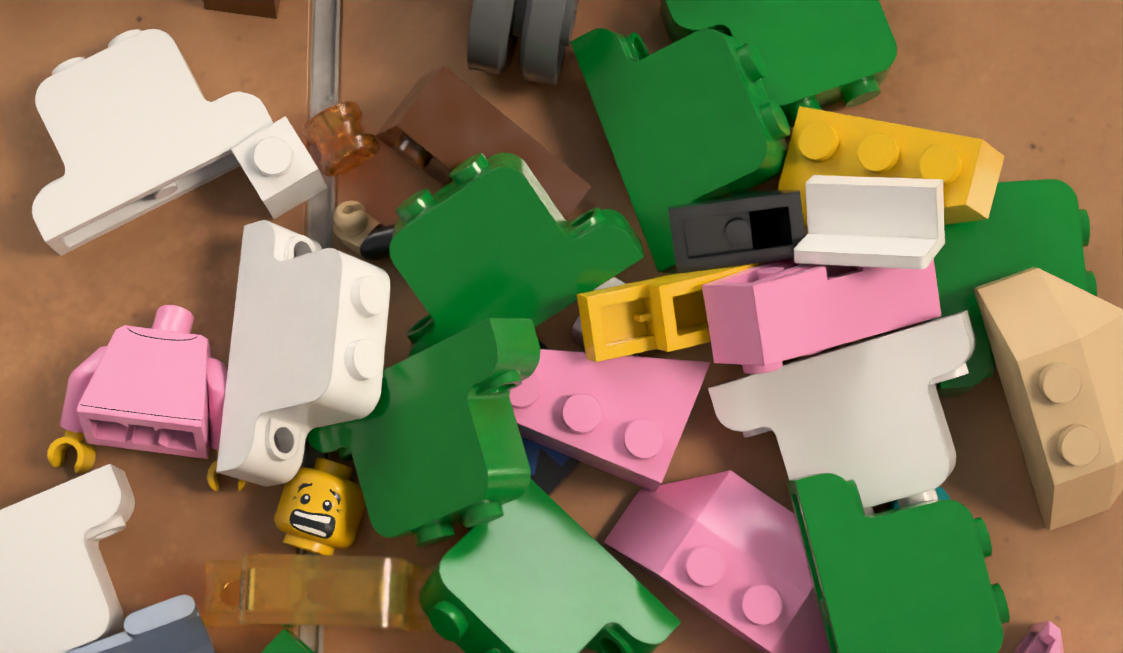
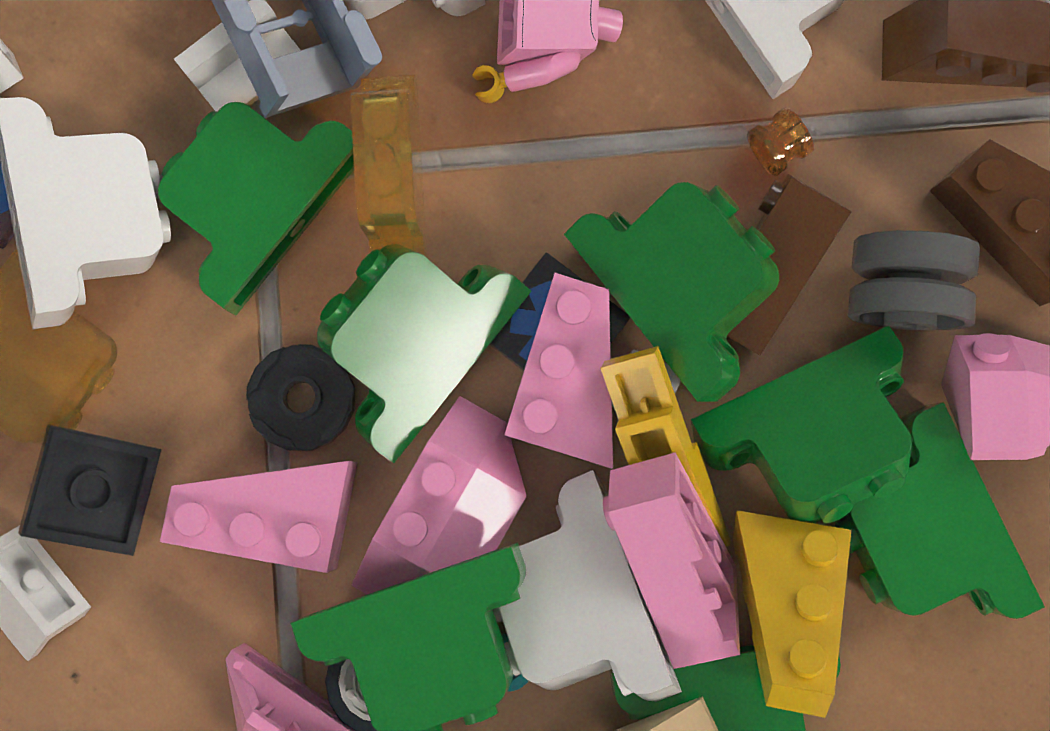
camera: 85 degrees right, 5 degrees up
(279, 167) = (749, 92): white brick -> none
(300, 350) = (591, 122): white brick -> none
(320, 508) = (465, 160): yellow head -> none
(362, 231) = (704, 165): tan arm -> none
(443, 434) = (529, 241): green brick -> none
(736, 230) = (731, 483): black slope -> none
(872, 222) = (747, 600): white panel -> none

